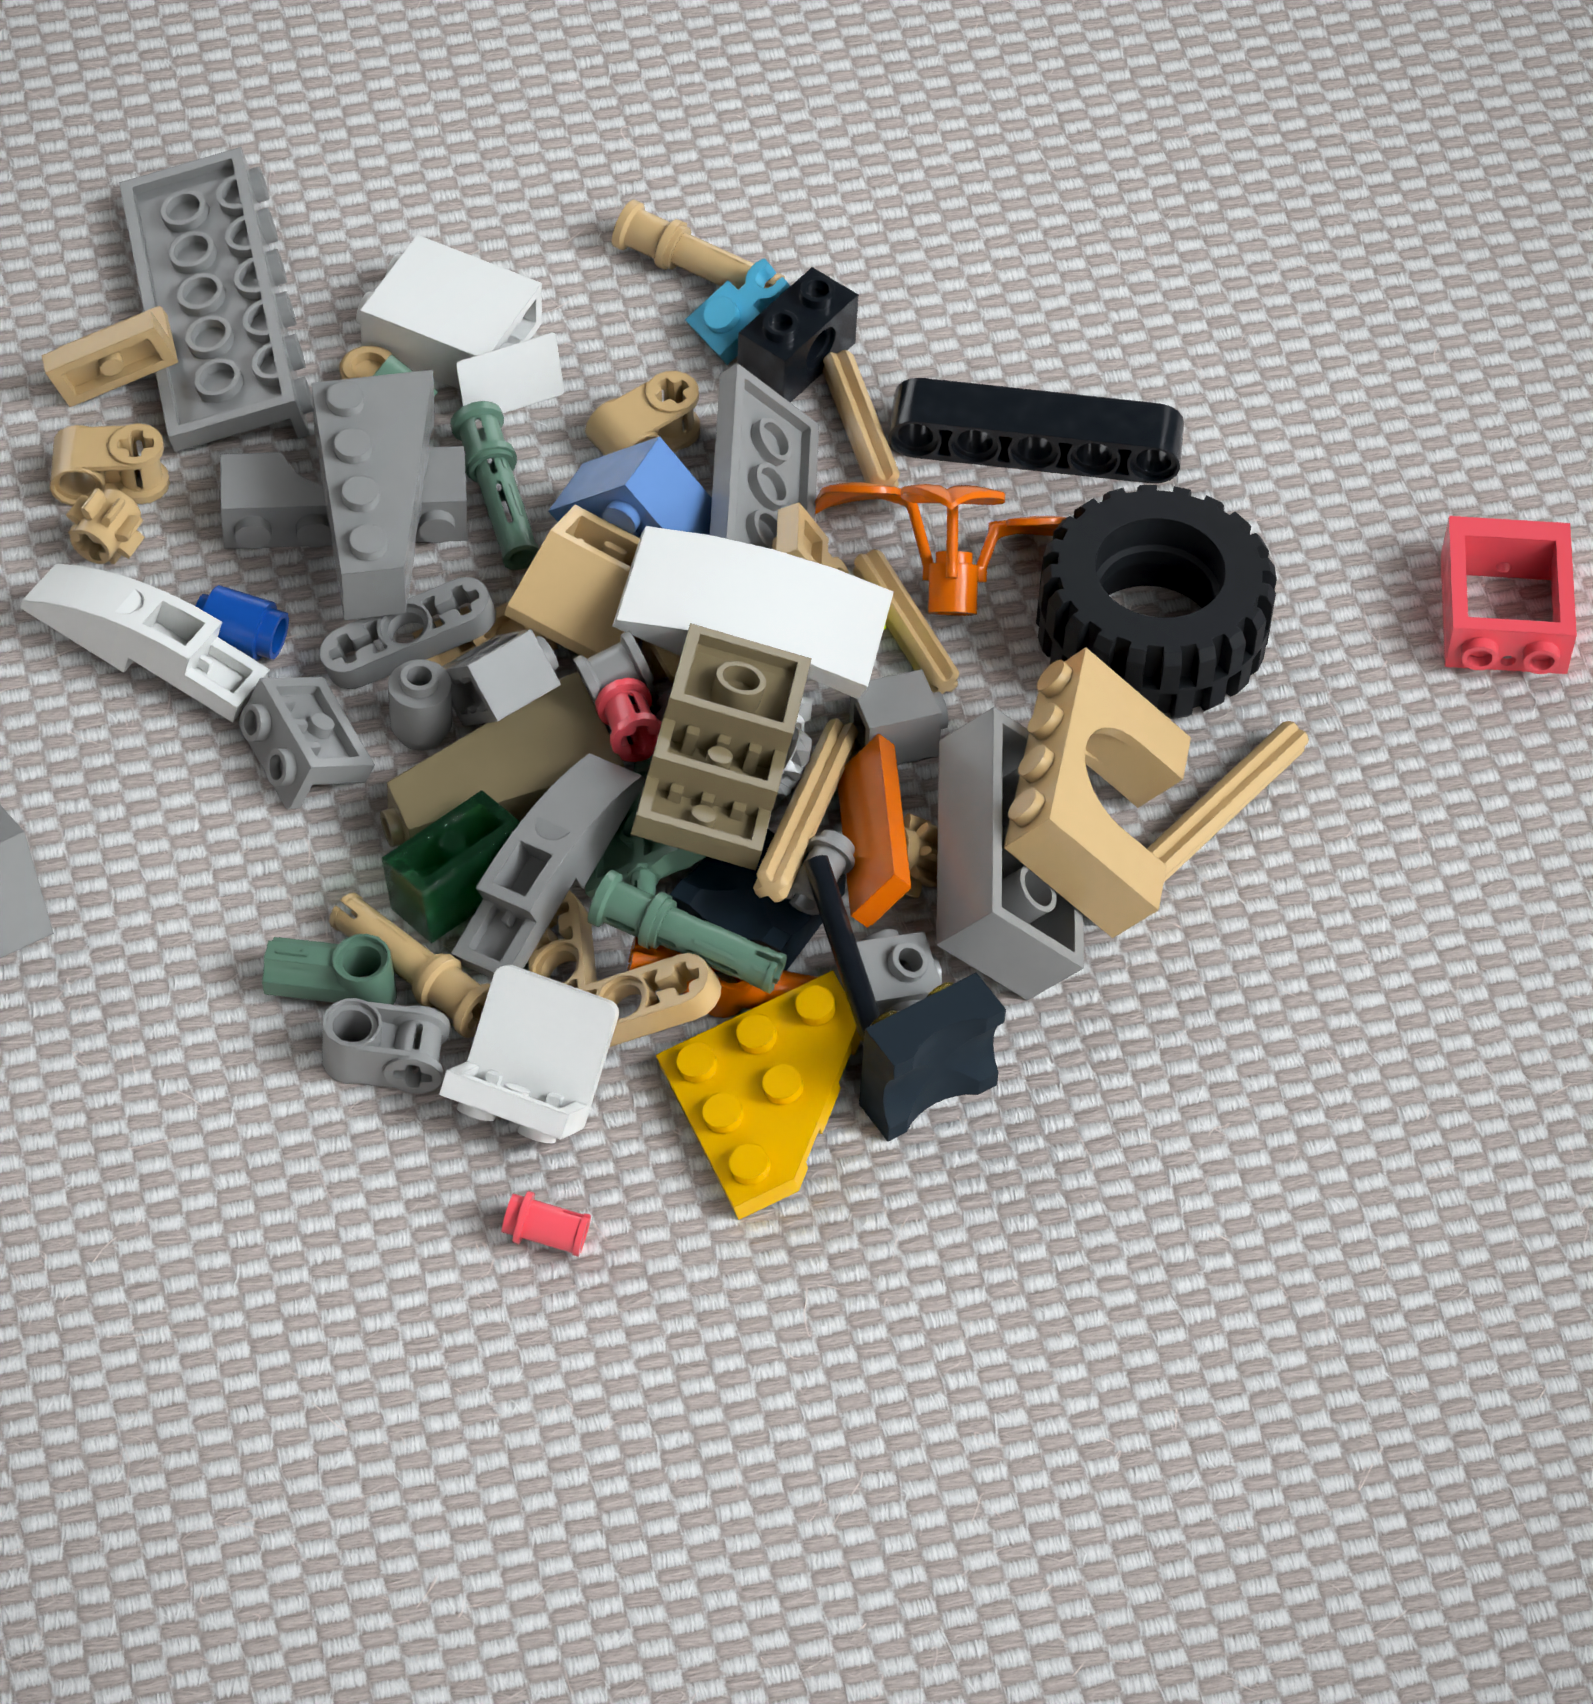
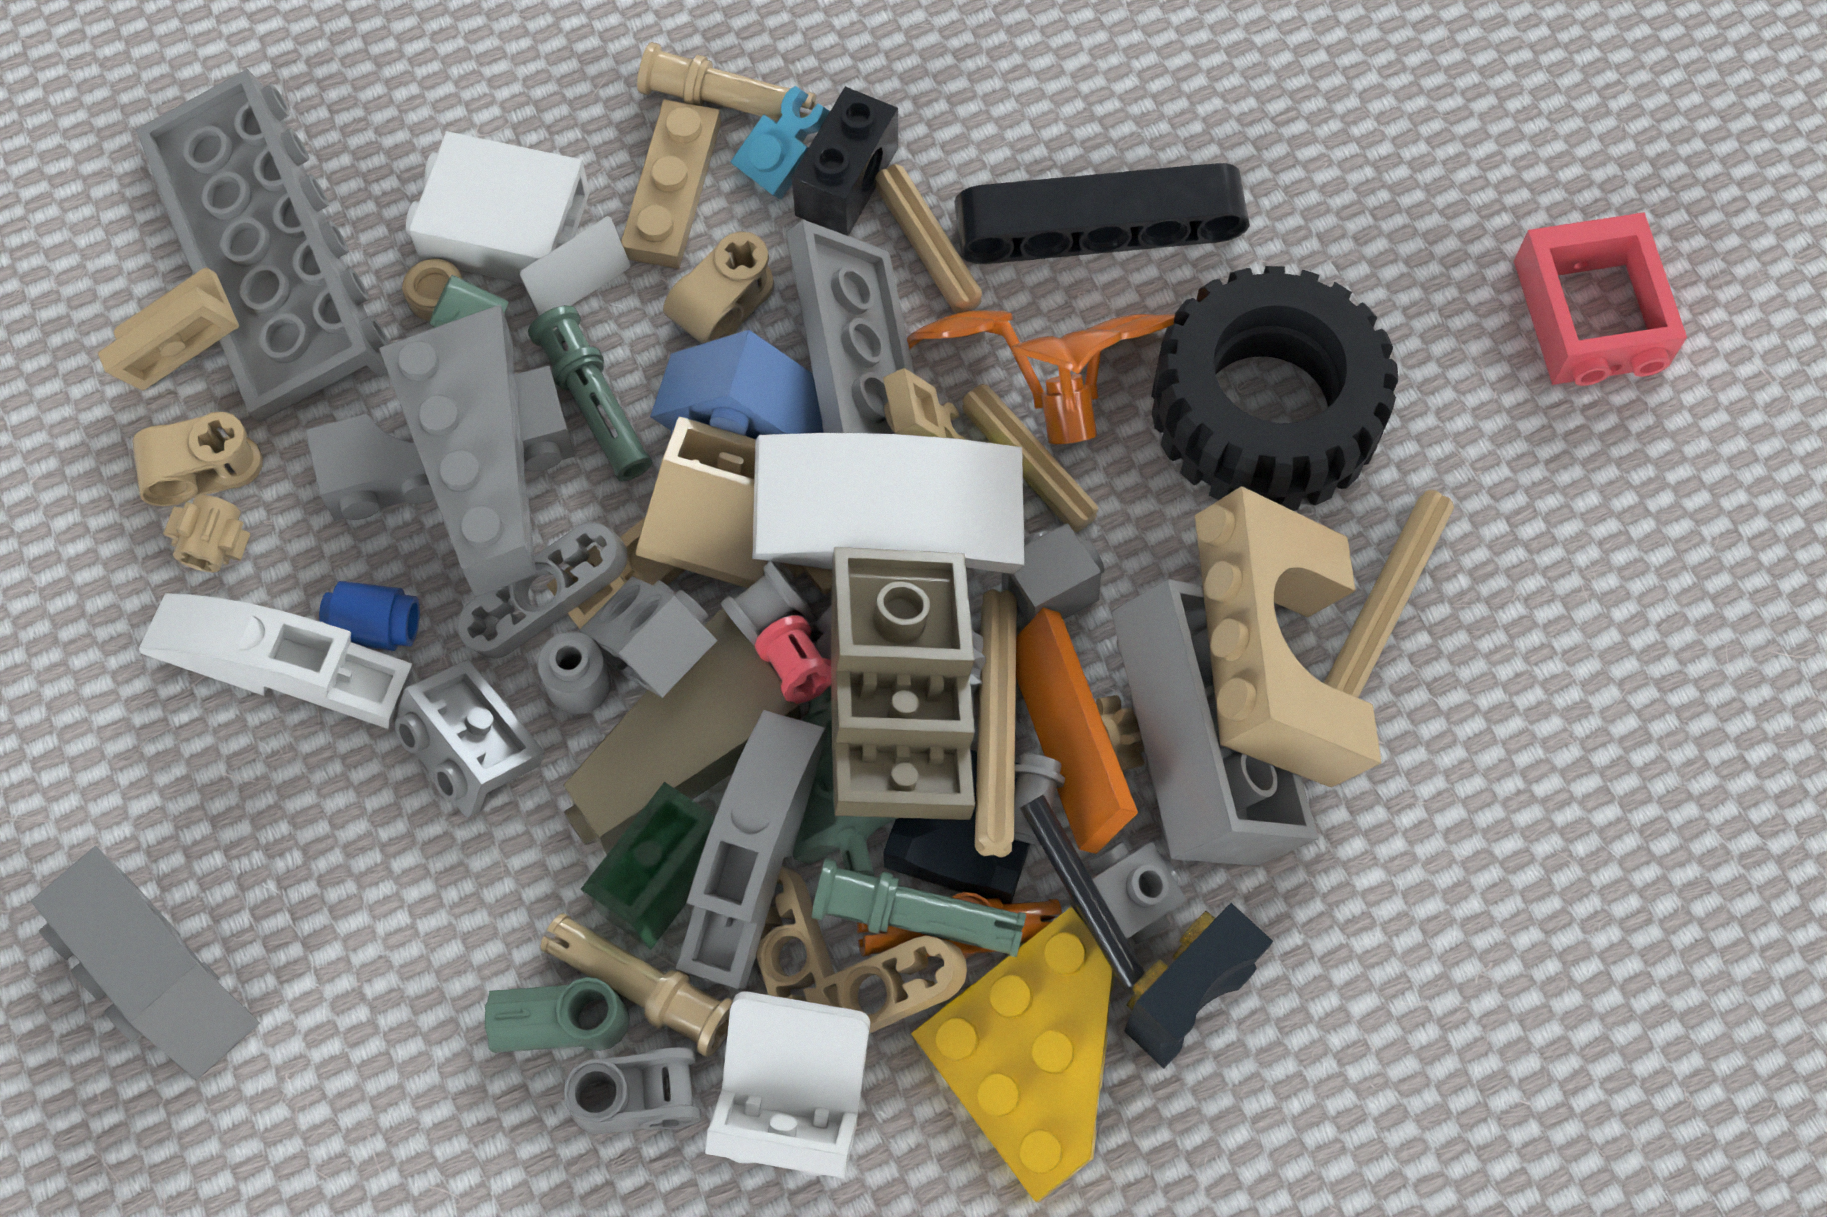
camera: 10 degrees left, 15 degrees up
(623, 328) = (671, 184): none -> tan plate

